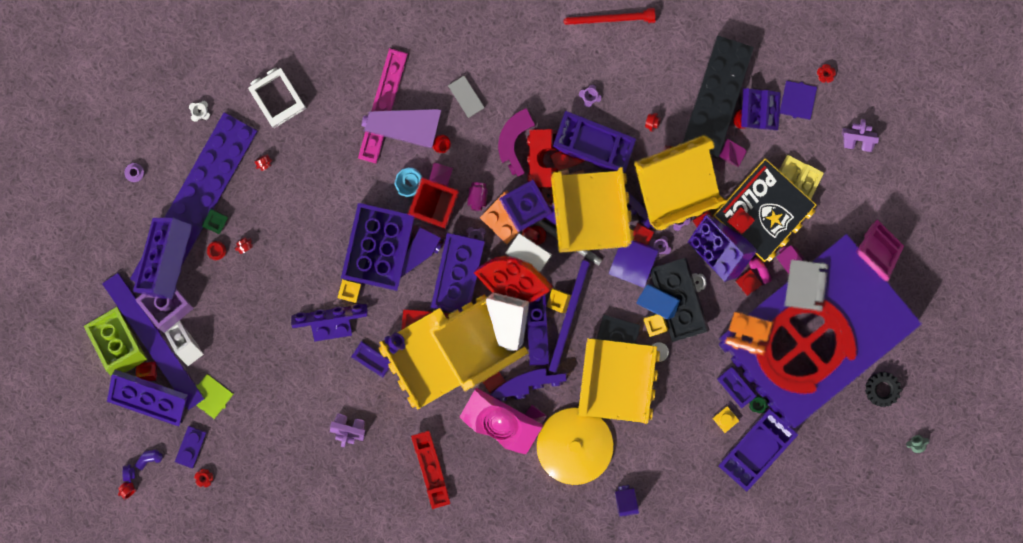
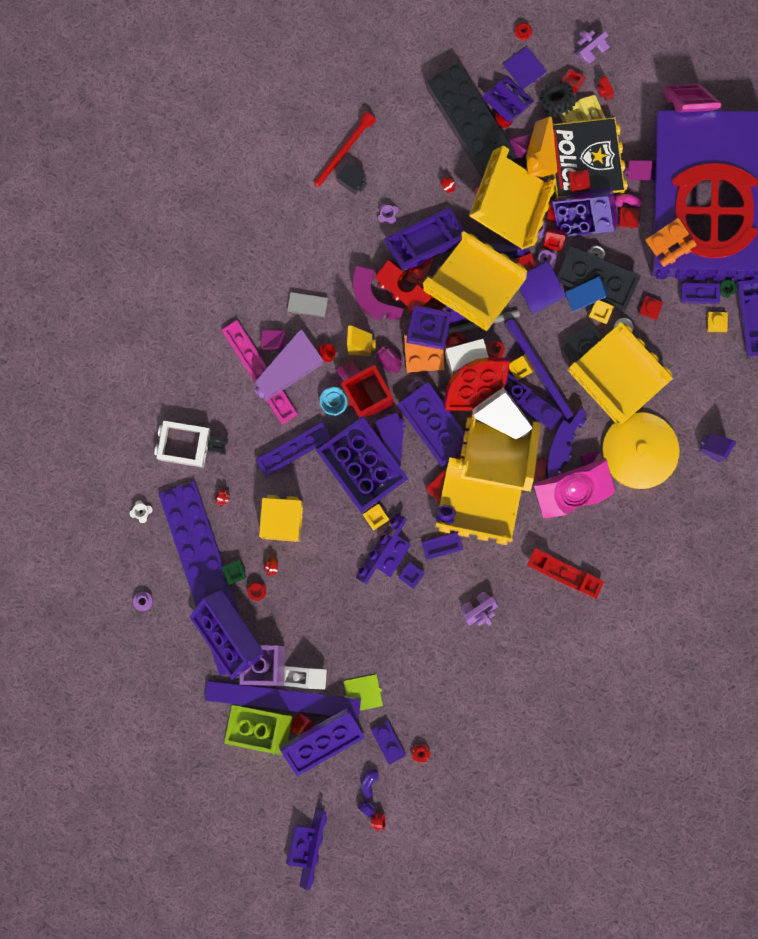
camera: 50 degrees left, 5 degrees down
(61, 452) = (305, 847): none -> dark purple bracket
(284, 222) = (281, 518): none -> yellow brick
(299, 124) = (217, 445): none -> black wheel
(329, 356) = (411, 575): none -> dark purple plate
(346, 184) = (293, 449): none -> dark purple plate
(415, 95) = (273, 340): none -> magenta slope
(469, 163) = (360, 342): none -> yellow slope
(556, 263) = (495, 343): none -> red plate
(592, 45) = (352, 179): none -> black brick
(680, 240) = (554, 239): none -> red plate
(692, 359) = (651, 308): none -> red plate
(738, 172) = (541, 150): none -> light orange slope
(790, 156) = (561, 106): none -> black tyre
(806, 285) = (671, 171): light grey piece -> none
(819, 146) = (574, 78): none -> red plate
(833, 177) = (605, 89): none -> red plate

